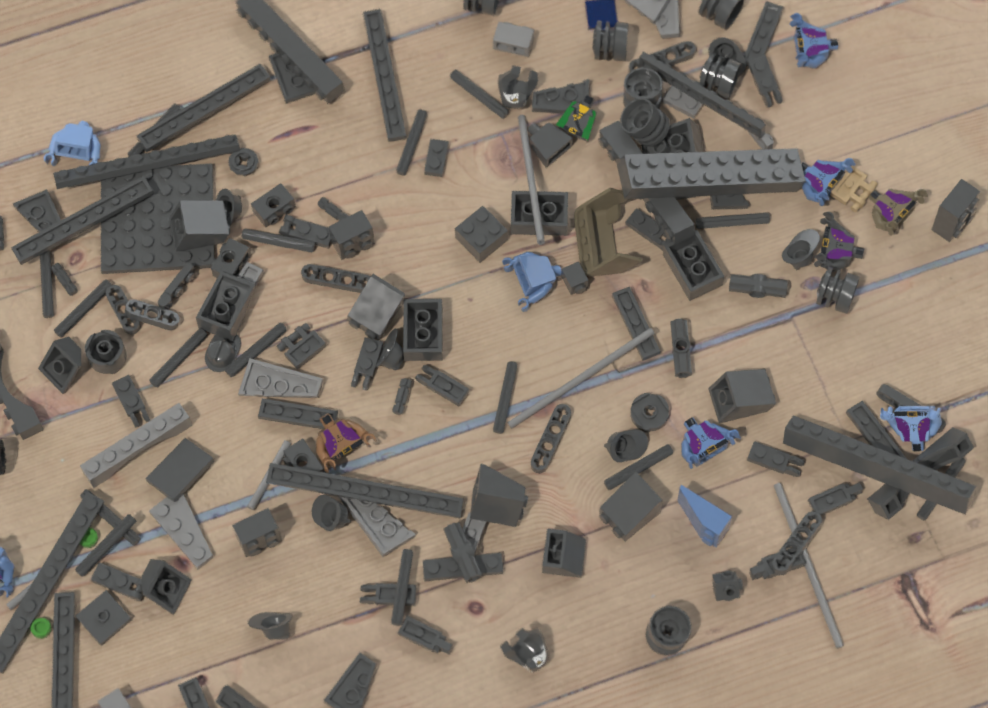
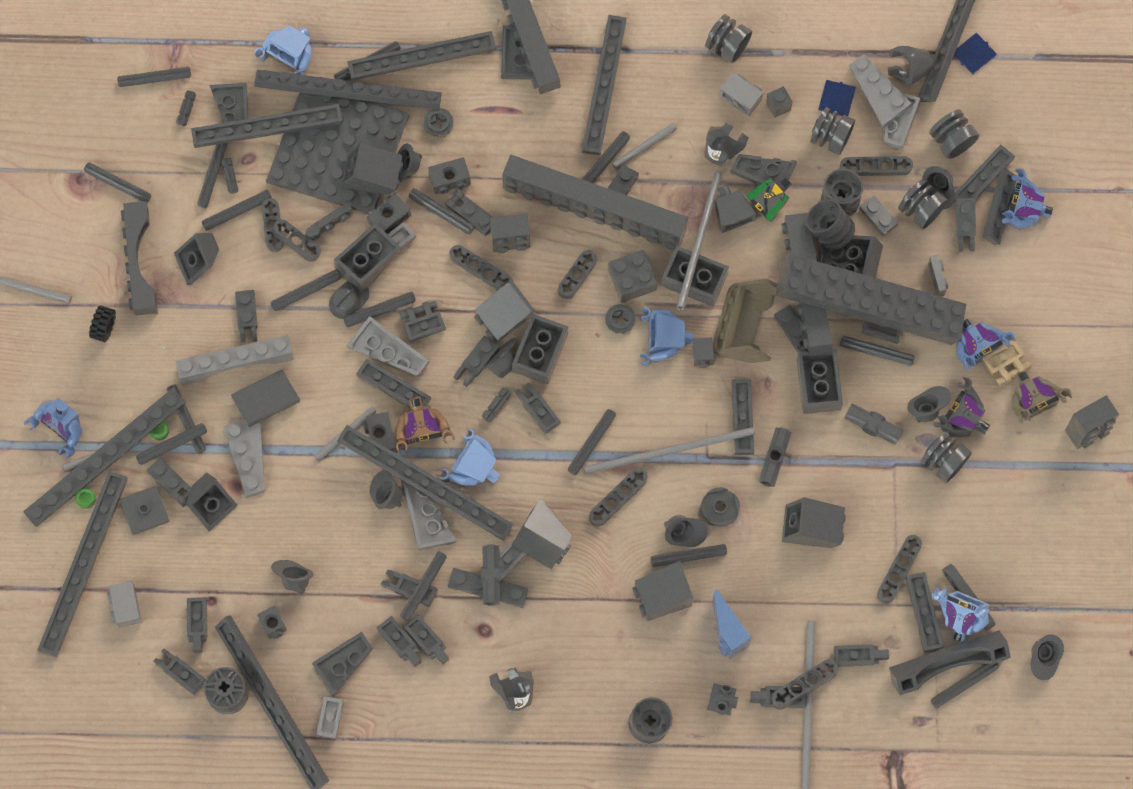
camera: 20 degrees right, 5 degrees up
(105, 352) = (245, 252): dark grey brick -> none
(257, 533) = (311, 485): dark grey brick -> none
(266, 669) = (269, 615): none -> dark grey brick
(331, 209) = (503, 200): dark grey axle -> none
(399, 647) = (399, 640): none -> dark grey hinge
(403, 456) = (473, 463): none -> light blue torso
(419, 180) = (594, 202): none -> dark grey brick
(426, 243) = (589, 266): none -> dark grey beam
(442, 117) = (643, 146): none -> light grey bar
(479, 94) = (687, 136): dark grey axle -> none
(491, 271) = (615, 312): none -> dark grey gear
(551, 33) = (779, 102): none -> dark grey brick
(563, 553) = (584, 611): dark grey slope -> none
(704, 96) = (902, 222): dark grey plate -> none
(705, 441) = (759, 555): medium blue torso -> none
(774, 459) = (818, 596): dark grey hinge -> none
(788, 52) = (1000, 203): none -> dark grey plate
(838, 407) = (896, 567): none -> dark grey beam
(879, 464) = (911, 640): dark grey brick -> none

